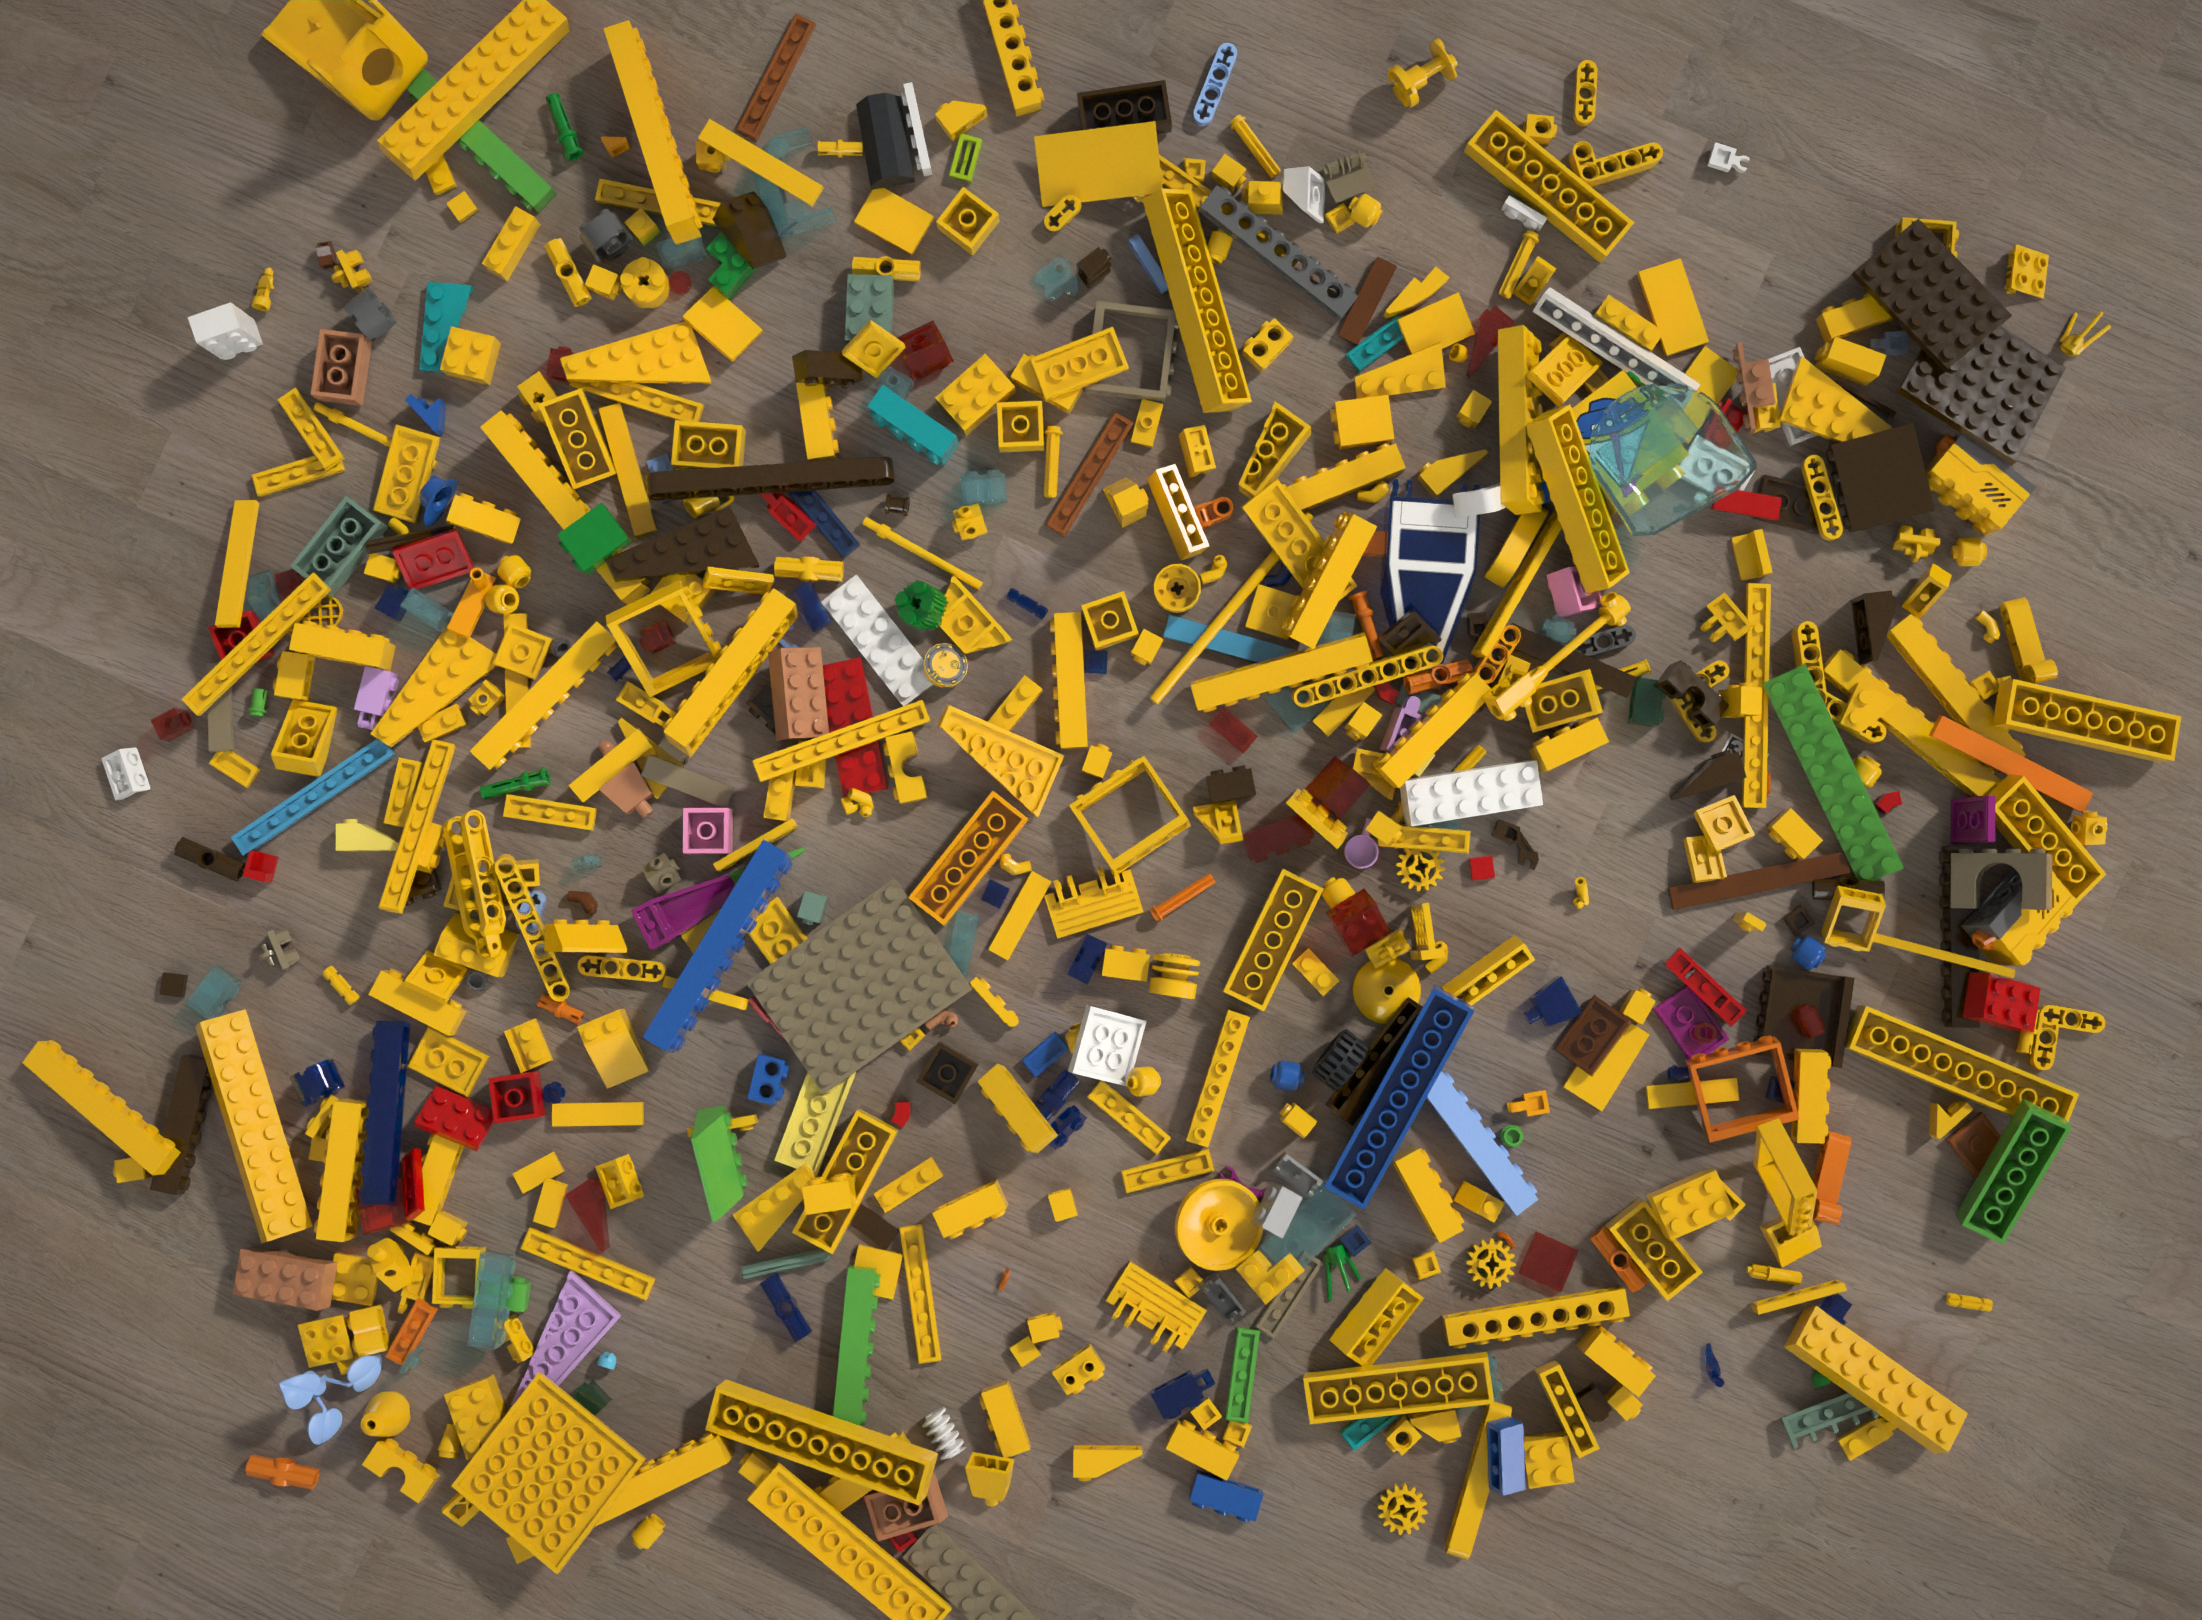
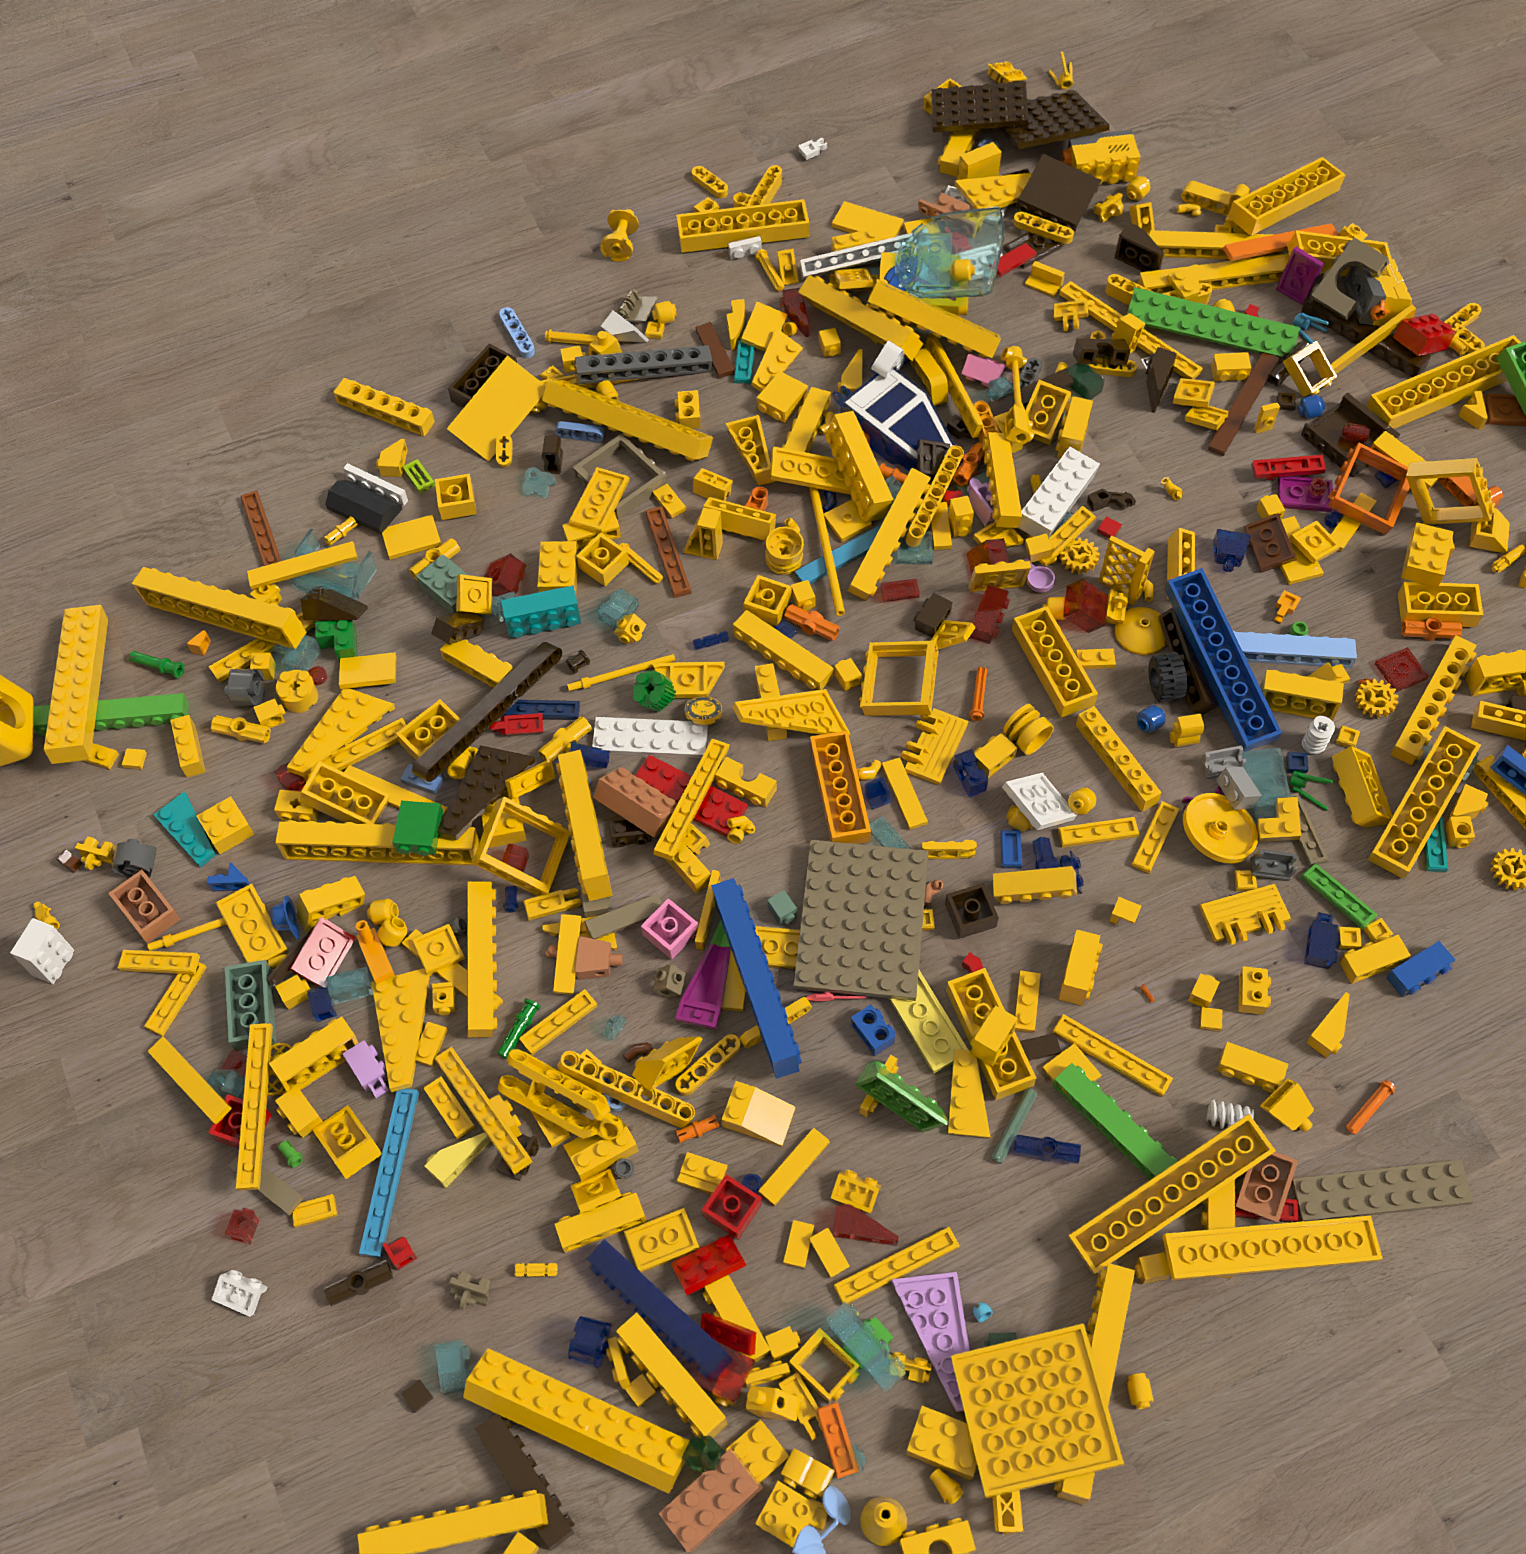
camera: 50 degrees left, 25 degrees down
(304, 1247) = (702, 1454): none -> clear green brick
(1054, 1541) = (1370, 1107): none -> orange axle
(1125, 680) = (812, 622): none -> orange piece
(1394, 1250) = (1318, 735): none -> white piece
(1628, 1079) = (1314, 542): none -> yellow plate
(1657, 480) = (962, 270): none -> yellow head
(1923, 862) = (1304, 321): none -> dark azure plant

